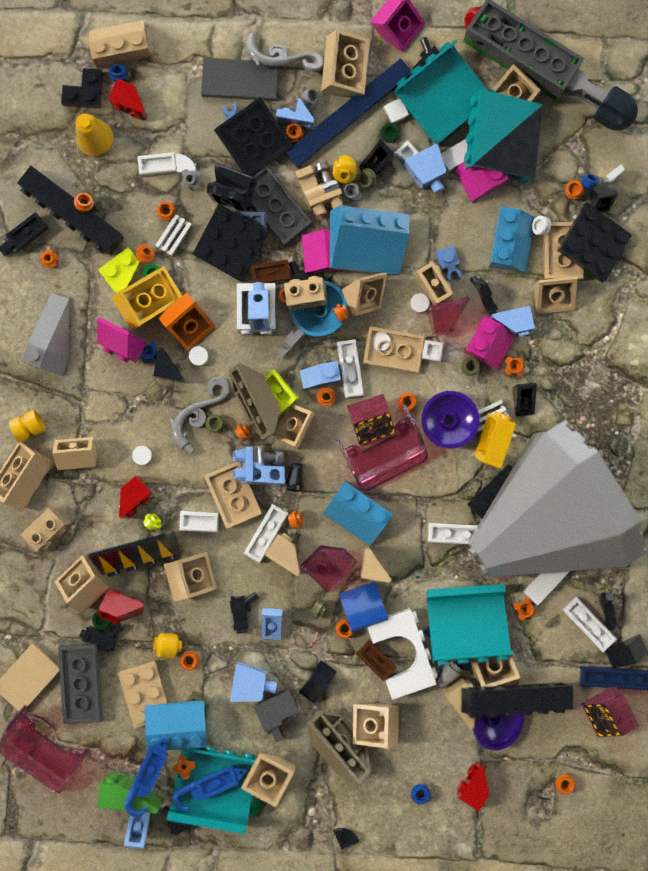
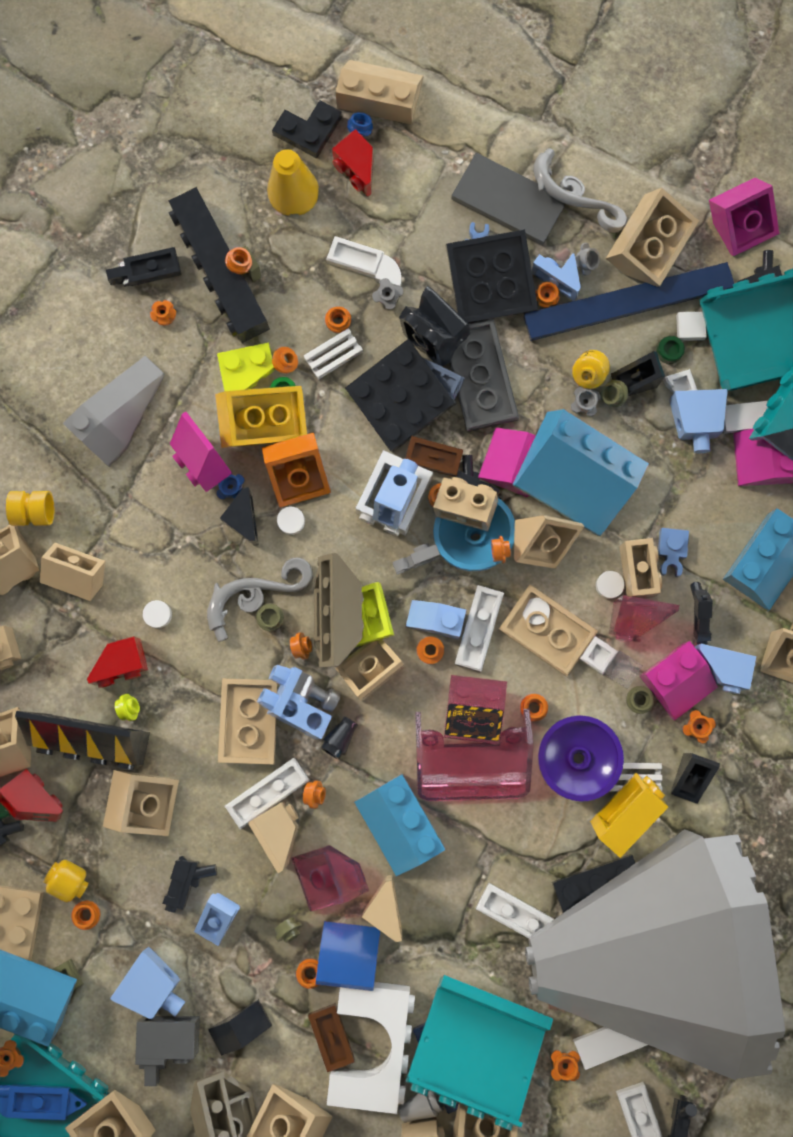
camera: 30 degrees right, 5 degrees down
(199, 521) = (188, 735): white tile -> none
(319, 195) = (546, 387): tan hips -> none

